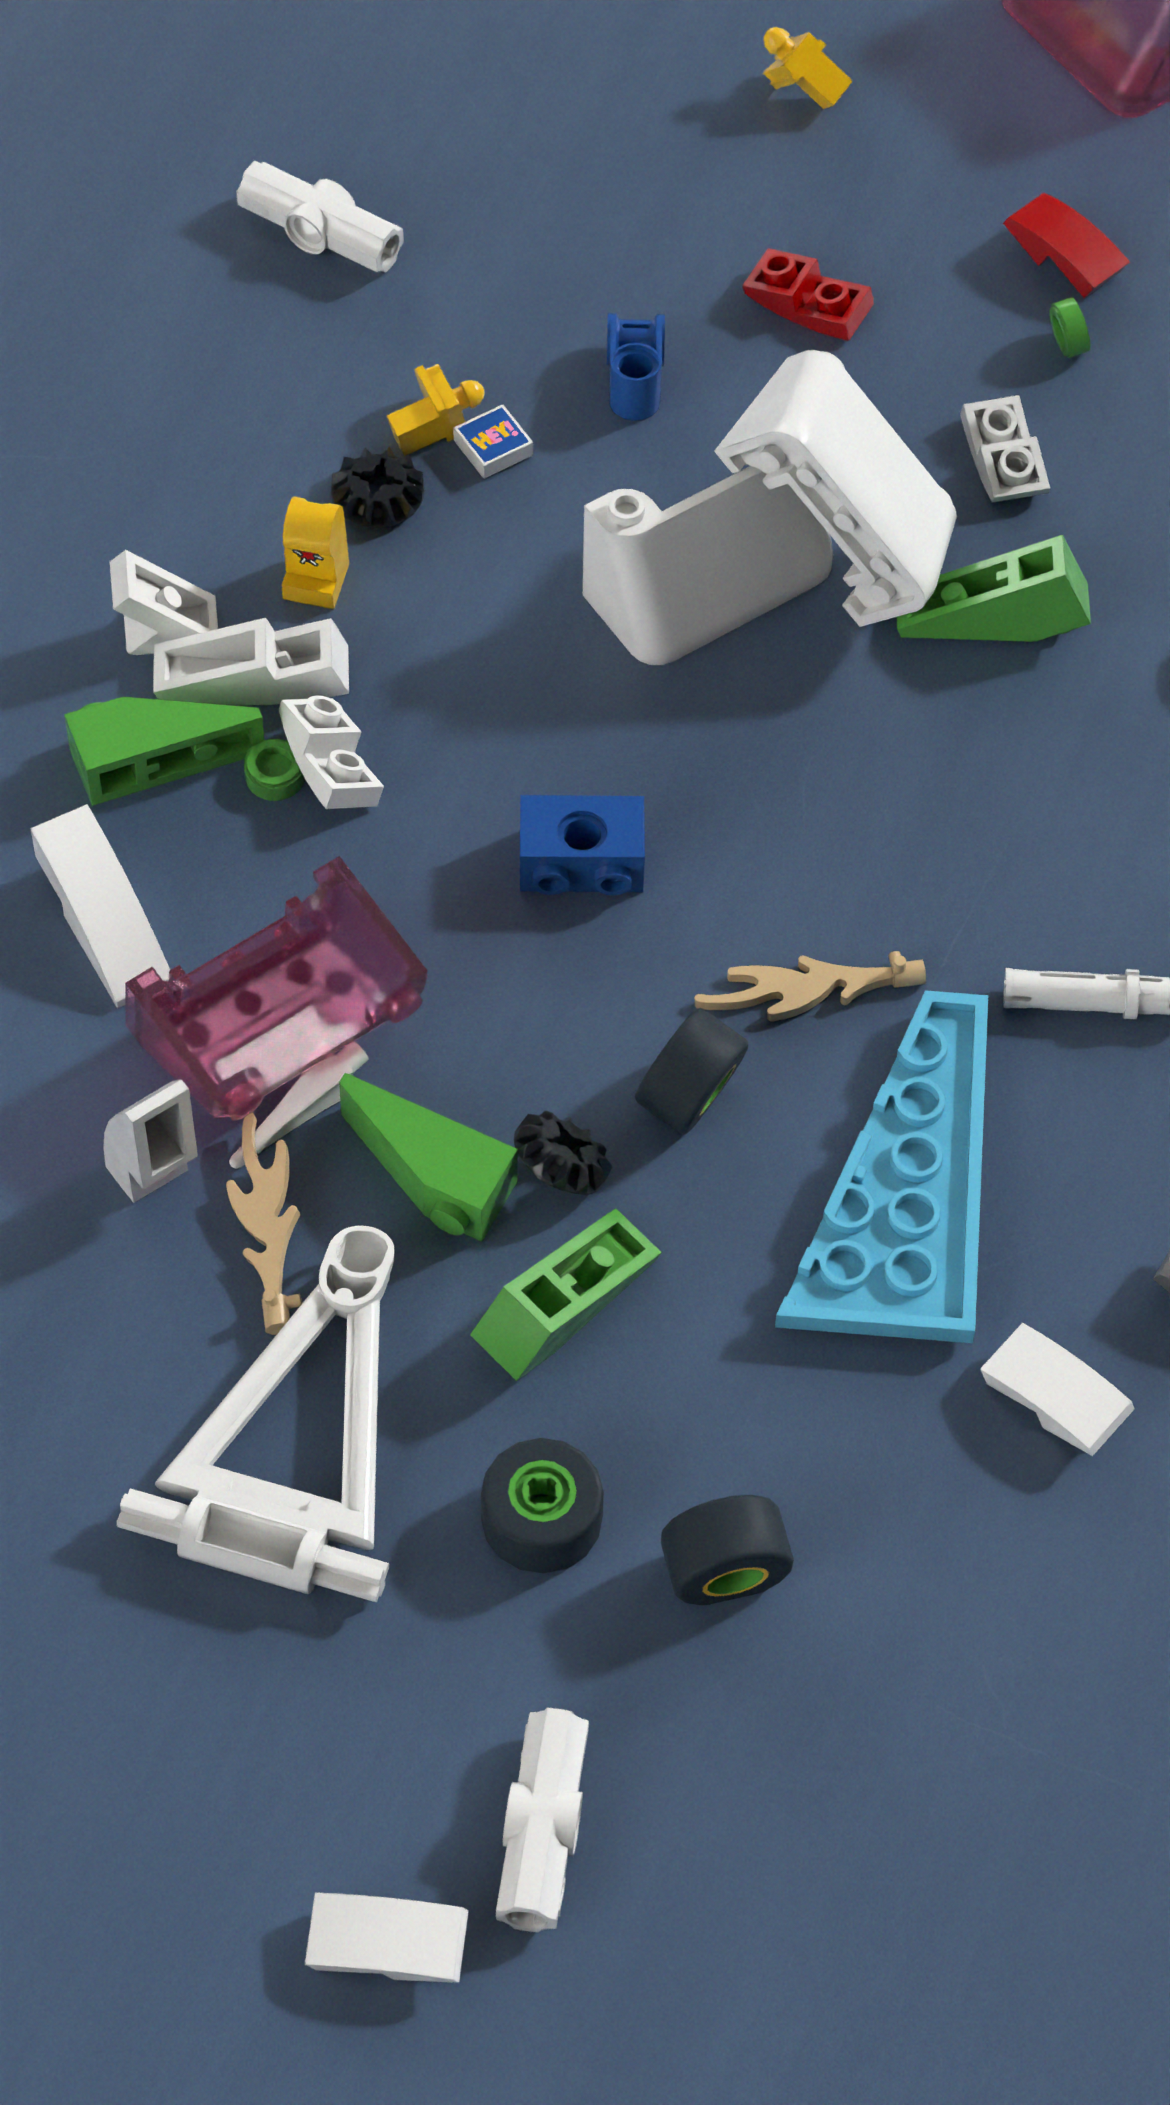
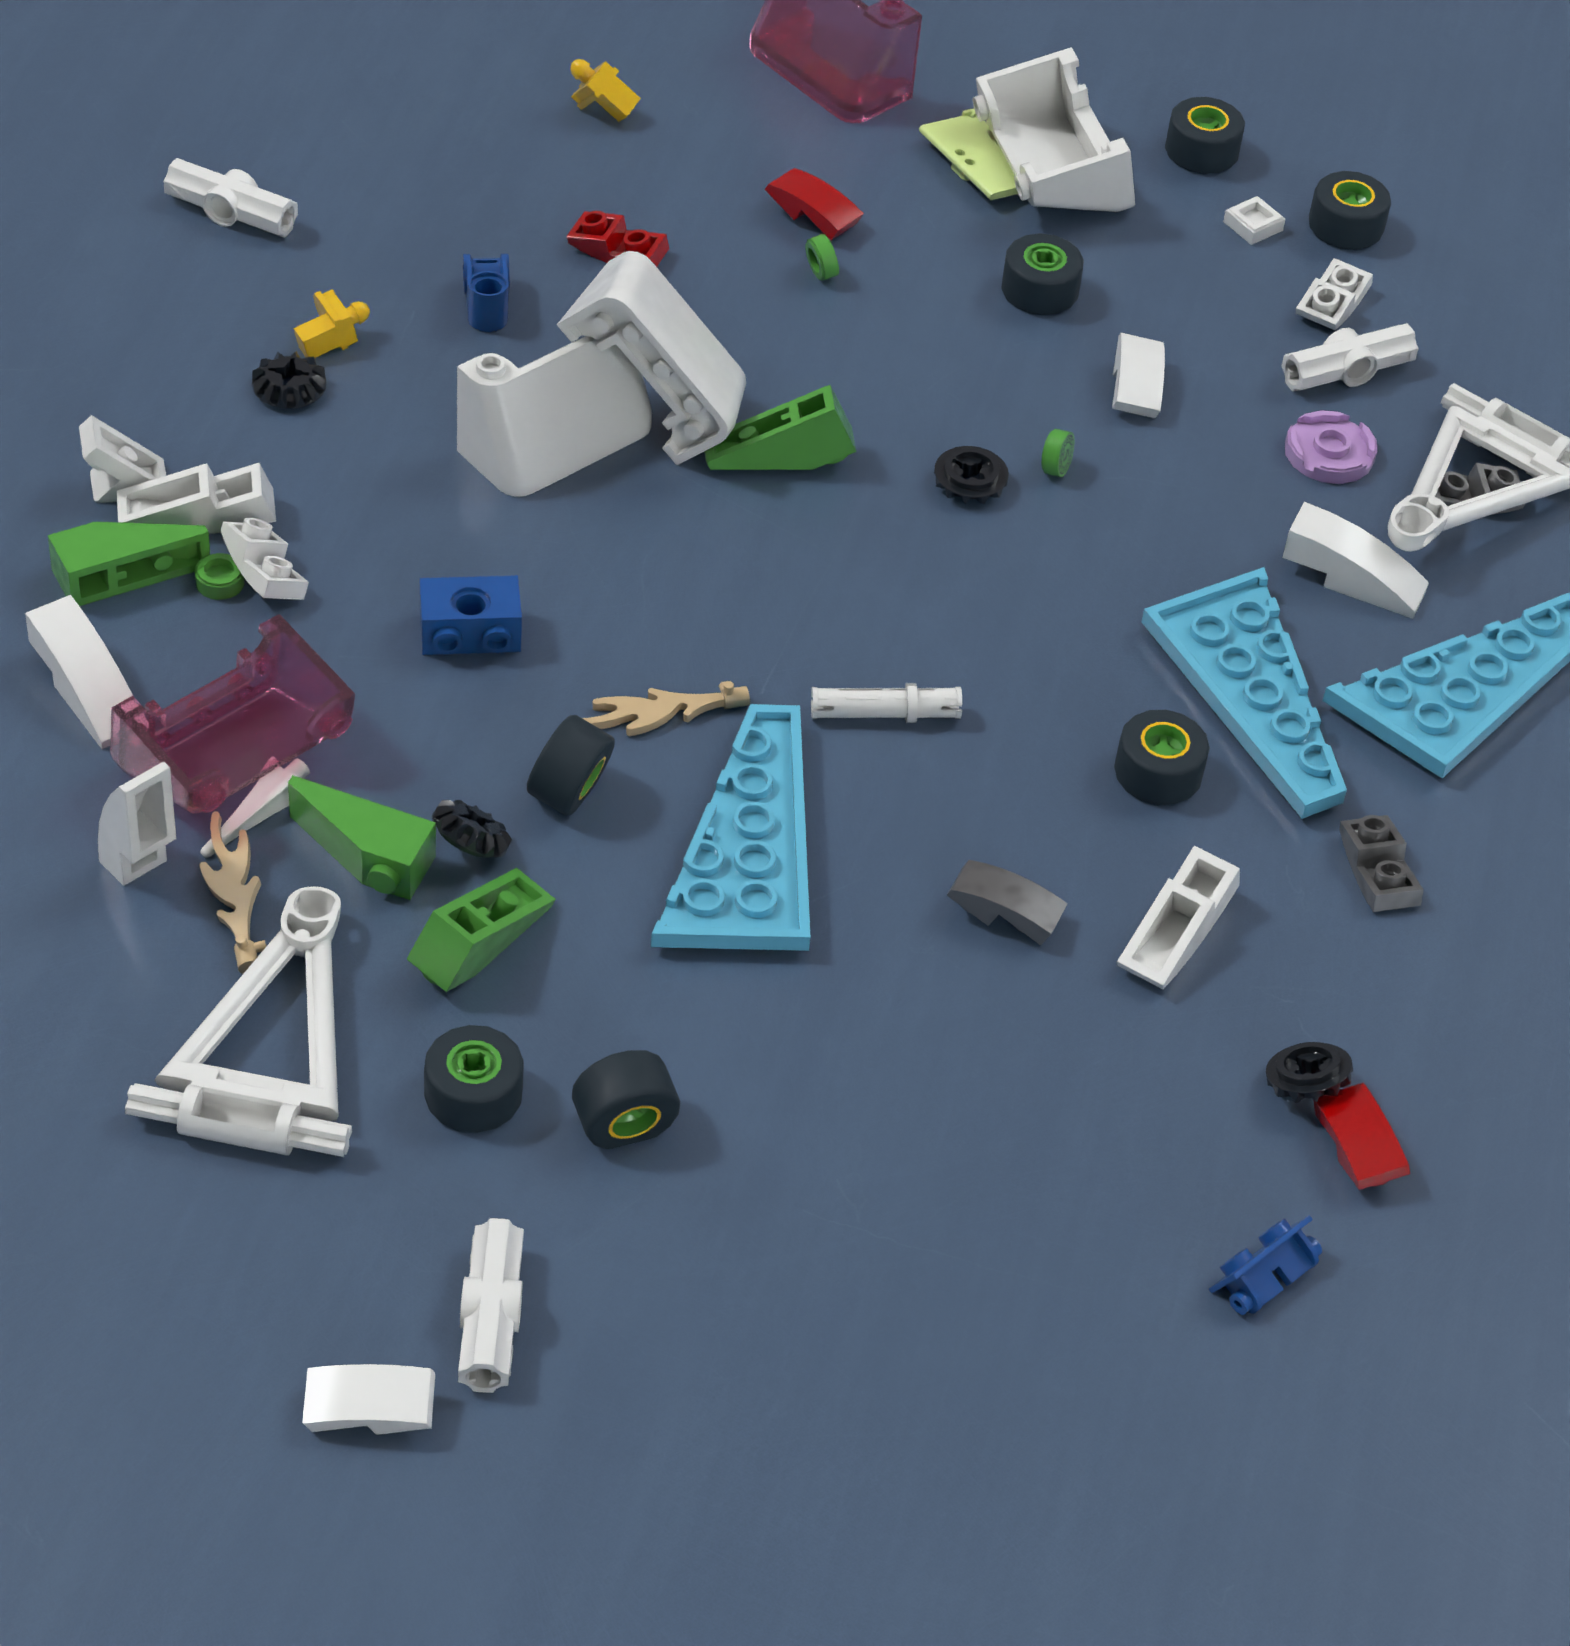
camera: 10 degrees left, 10 degrees down
(314, 553) = (242, 420): yellow leg -> none
(493, 441) = (378, 347): tile -> none
(1003, 449) = (778, 341): white slope -> none
(1059, 1387) = (884, 976): white slope -> none

